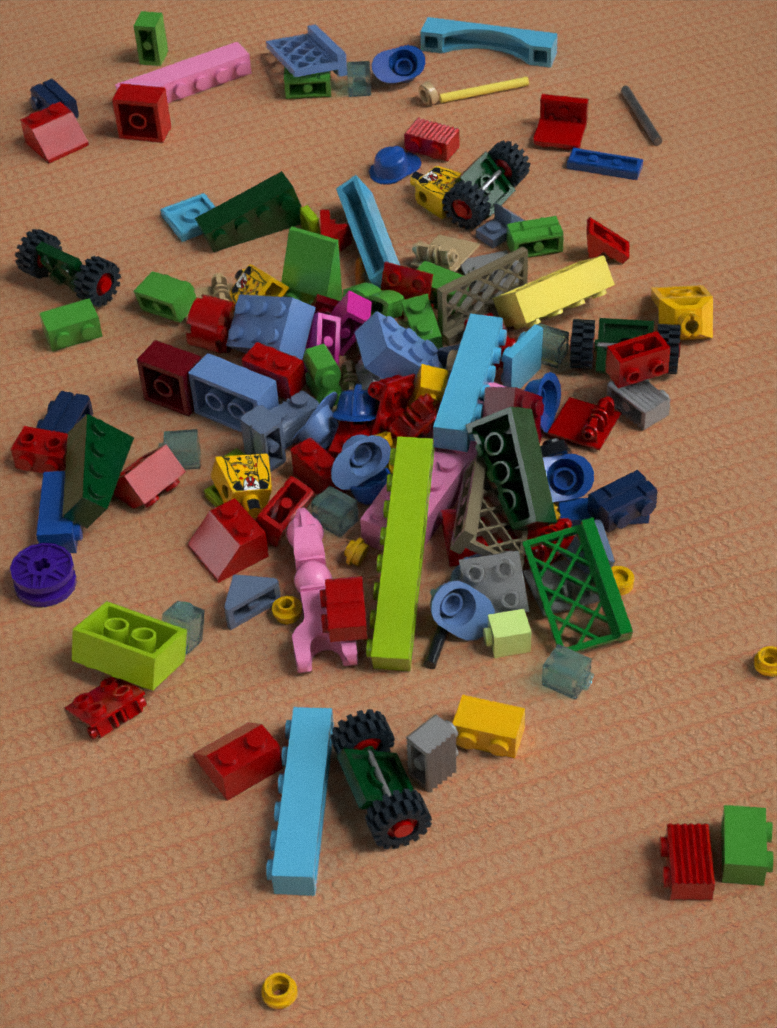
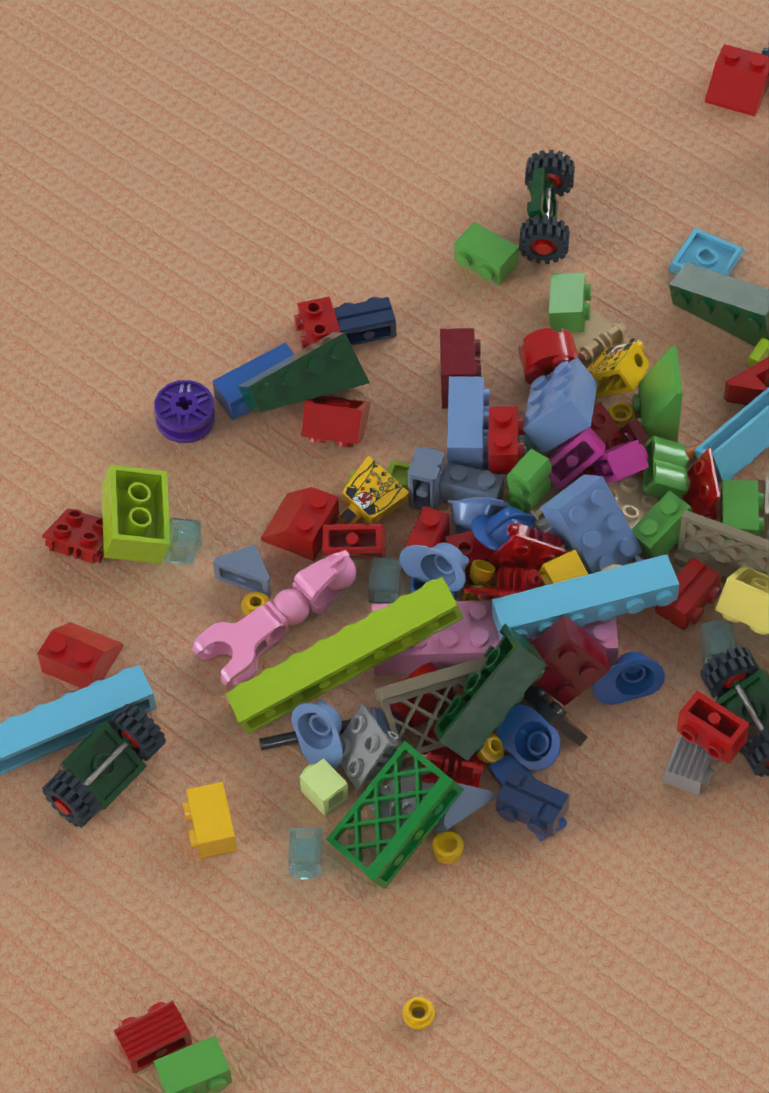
camera: 60 degrees right, 10 degrees up
(185, 447) = (386, 426): clear light blue brick -> none
(345, 609) = (254, 645): red brick -> none
(356, 551) = (346, 618): yellow plate -> none
(432, 752) = (149, 789): light grey brick -> none
(523, 358) = (667, 632): medium azure tile -> none
(586, 422) = (635, 727): red hinge -> none

